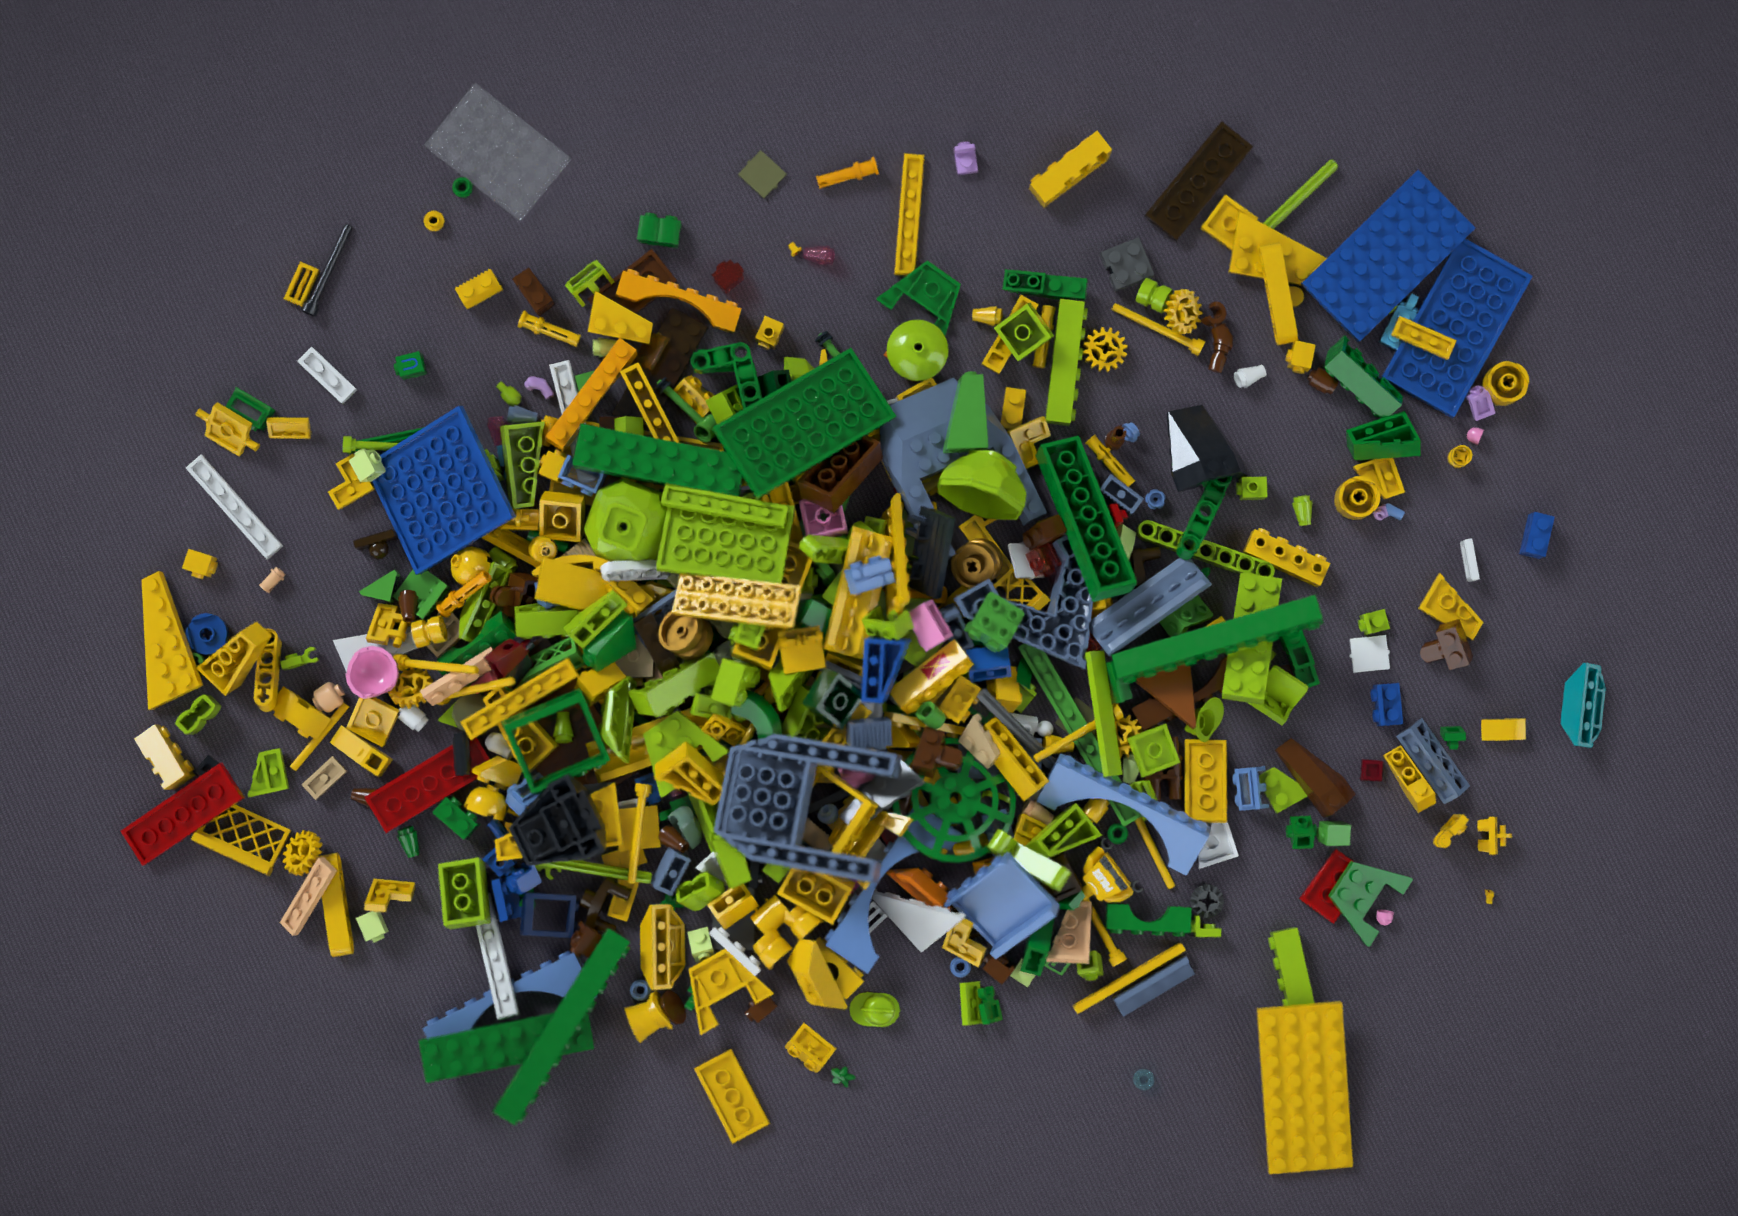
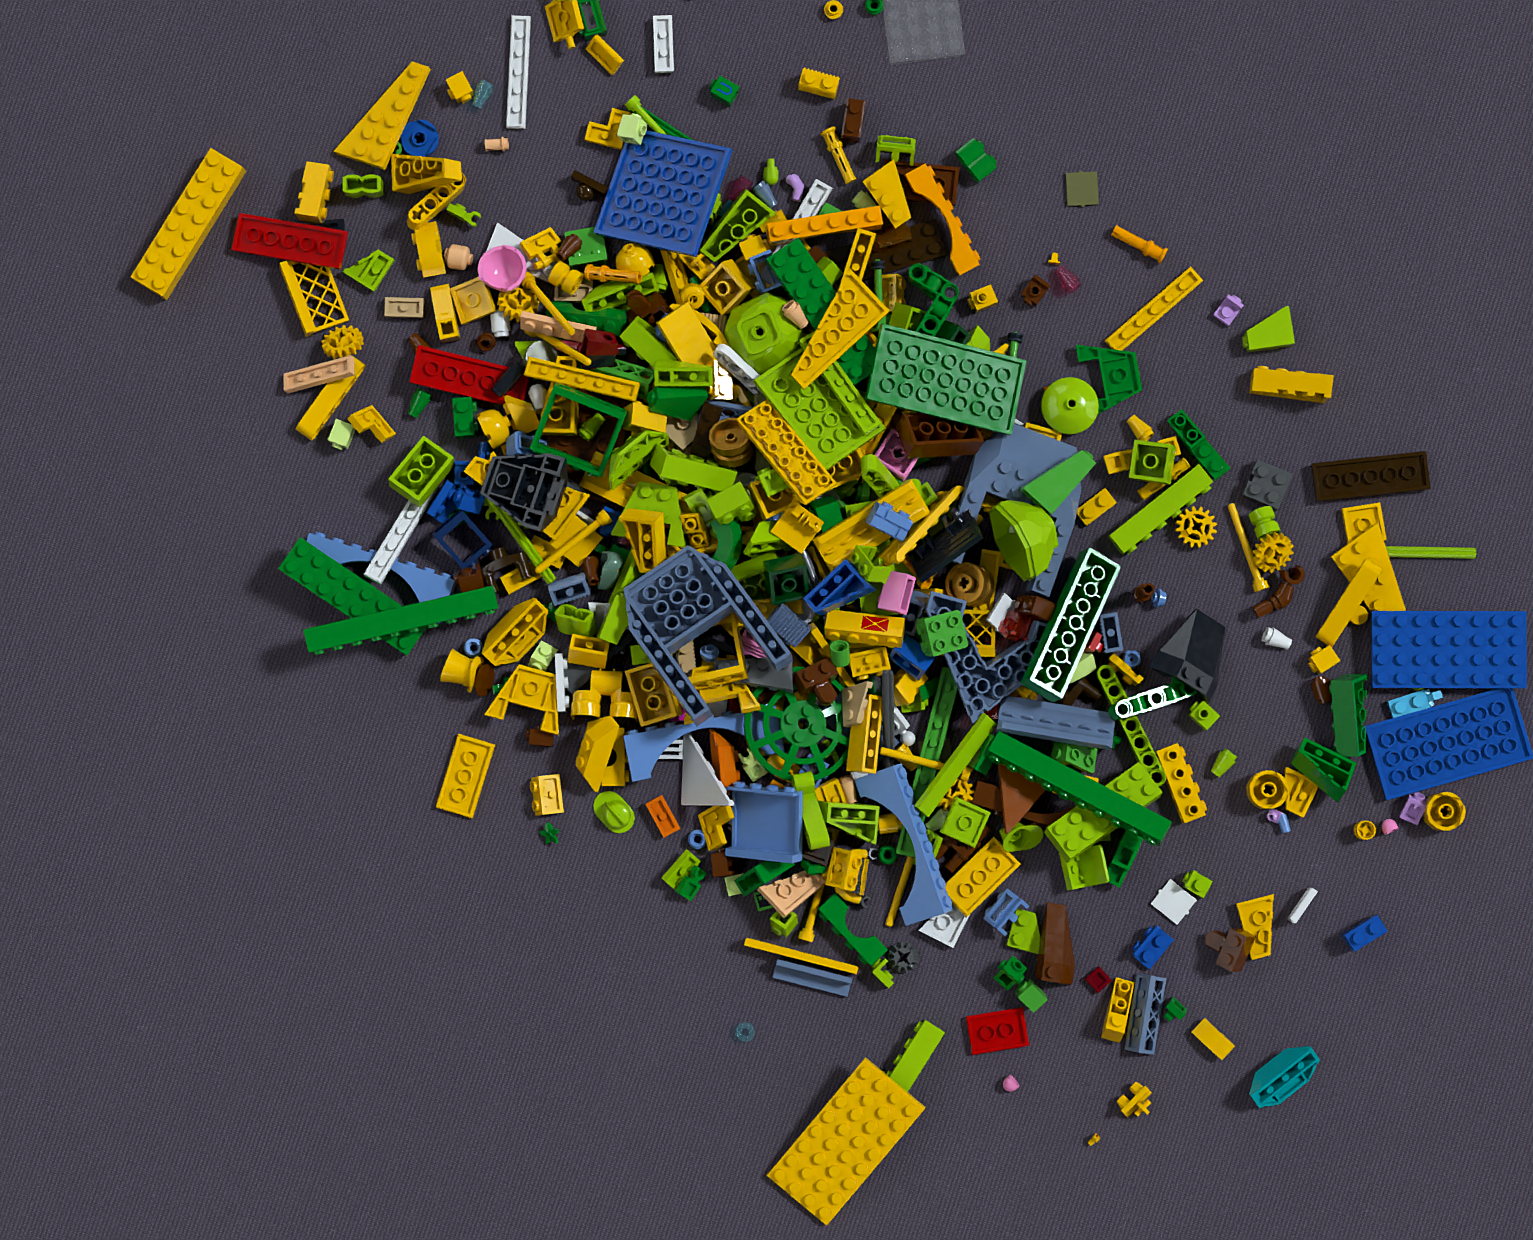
camera: 45 degrees right, 0 degrees up
(88, 878) = (188, 224): none -> yellow brick
(222, 551) = (482, 93): none -> clear light blue cone
(314, 743) = (419, 278): yellow bar -> none
(383, 588) = (563, 220): bright green slope -> none
(418, 745) = (486, 346): none -> reddish brown plate
(635, 485) = (795, 314): none -> light nougat cone
(682, 450) = (844, 323): none -> yellow wing
(728, 275) = (993, 234): clear red brick -> none
(807, 296) = (1042, 287): none -> reddish brown brick
(916, 975) = (662, 816): none -> orange plate
(947, 869) = (752, 767): none -> yellowish green plate
(1016, 145) = (1270, 333): none -> lime slope
(1025, 437) = (1083, 533): yellow plate -> none
(1097, 879) = (844, 869): none -> yellow bracket
(1109, 460) = (1126, 604): yellow pin -> none
(1166, 513) = (1128, 675): none -> yellow wing
(1357, 892) = (1008, 1049): green wing -> none
(1423, 338) = (1418, 727): yellow tile -> none
(1453, 826) = (1114, 1069): yellow plate -> none

